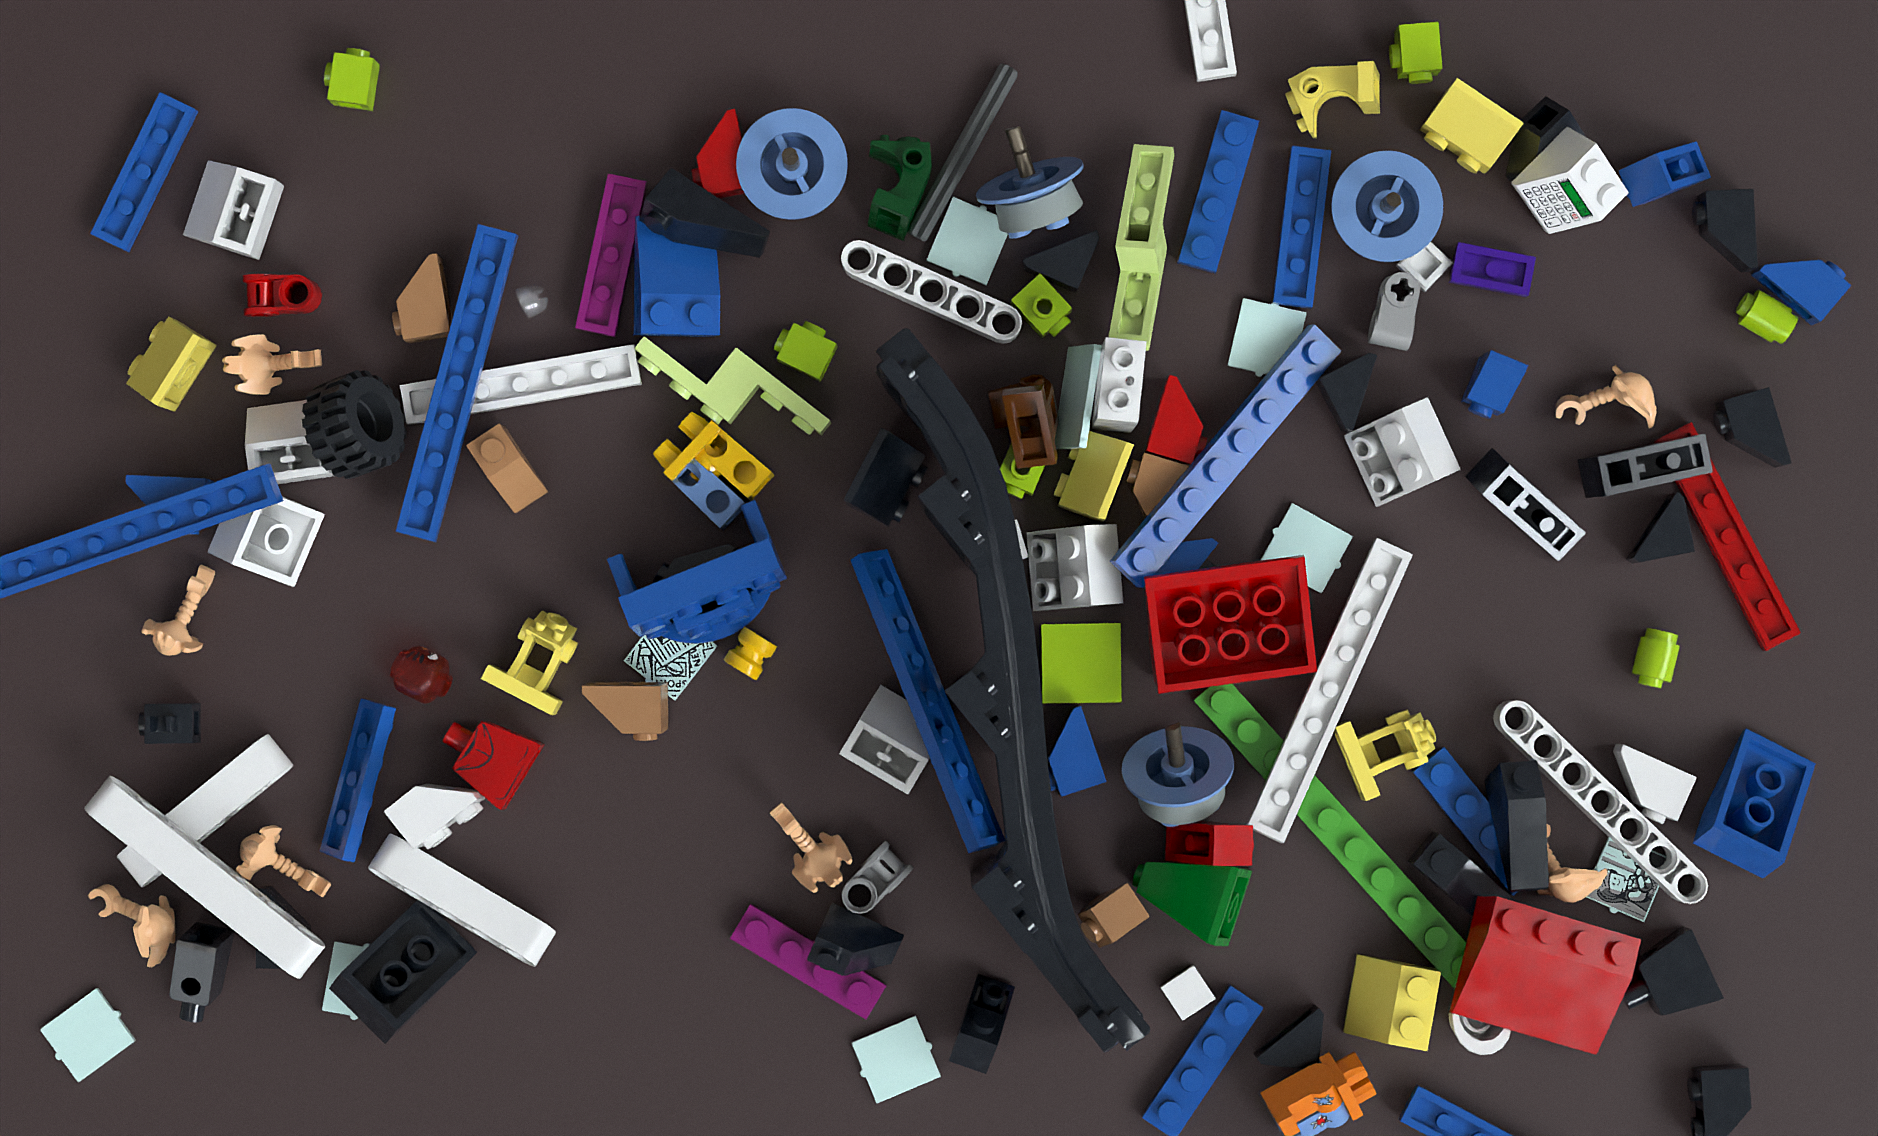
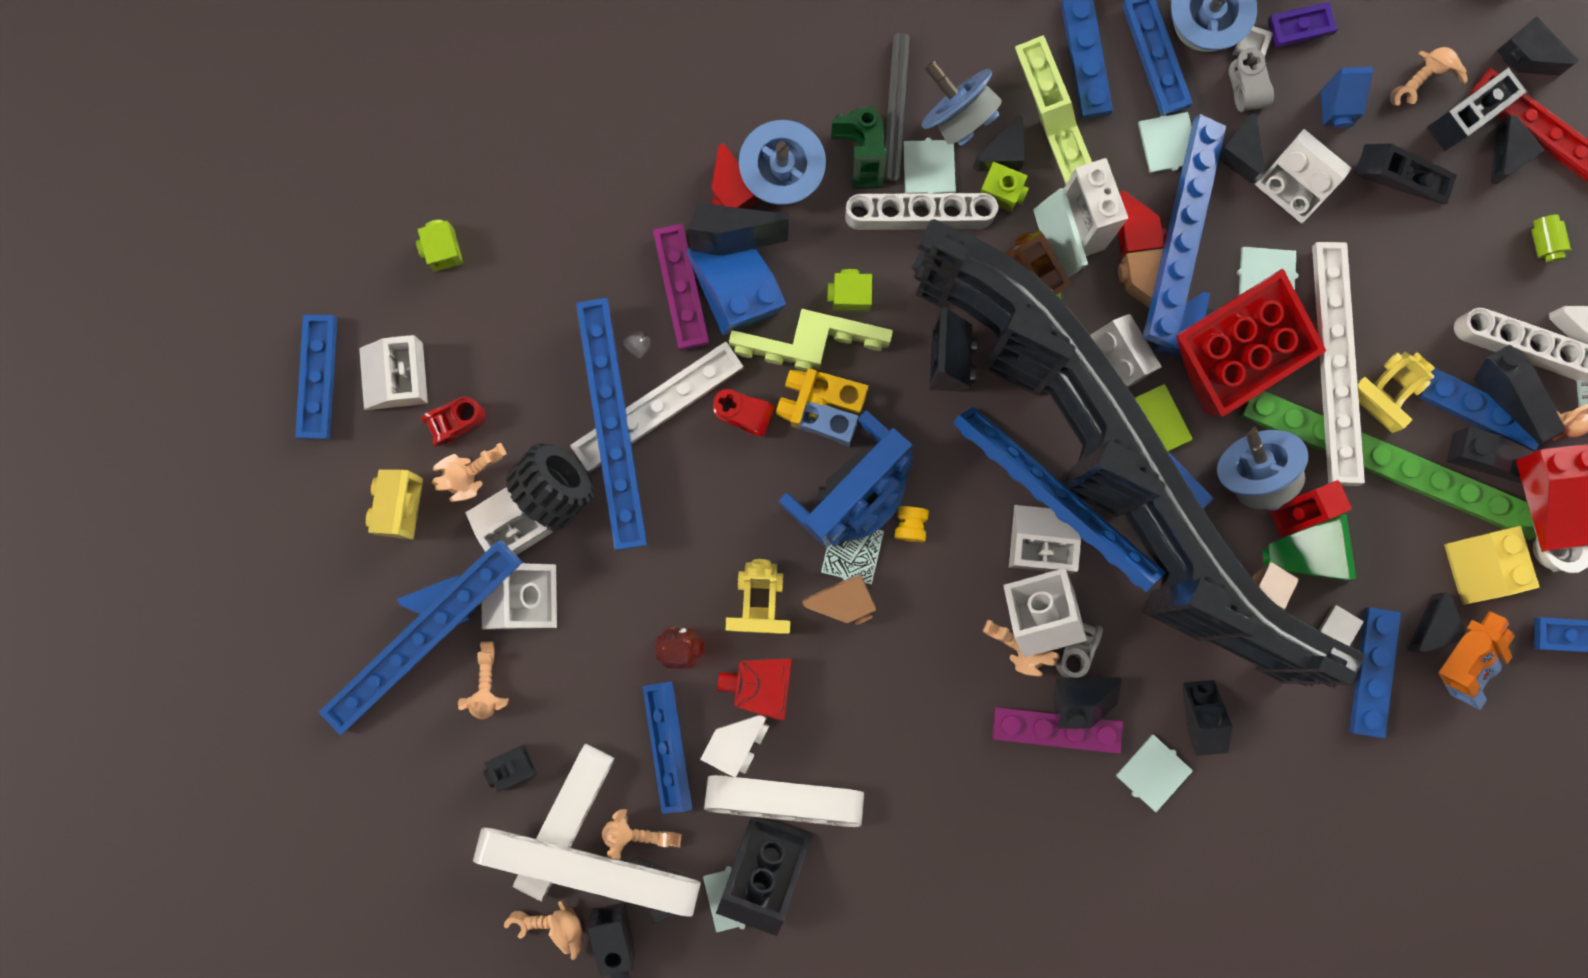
camera: 30 degrees left, 5 degrees down
(424, 304) = (562, 381): medium nougat slope -> none
(507, 468) = (674, 470): medium nougat slope -> none
(622, 440) = (749, 413): none -> red piece
(848, 823) = (1044, 612): none -> white brick
(1093, 476) = (1101, 287): light yellow slope -> none

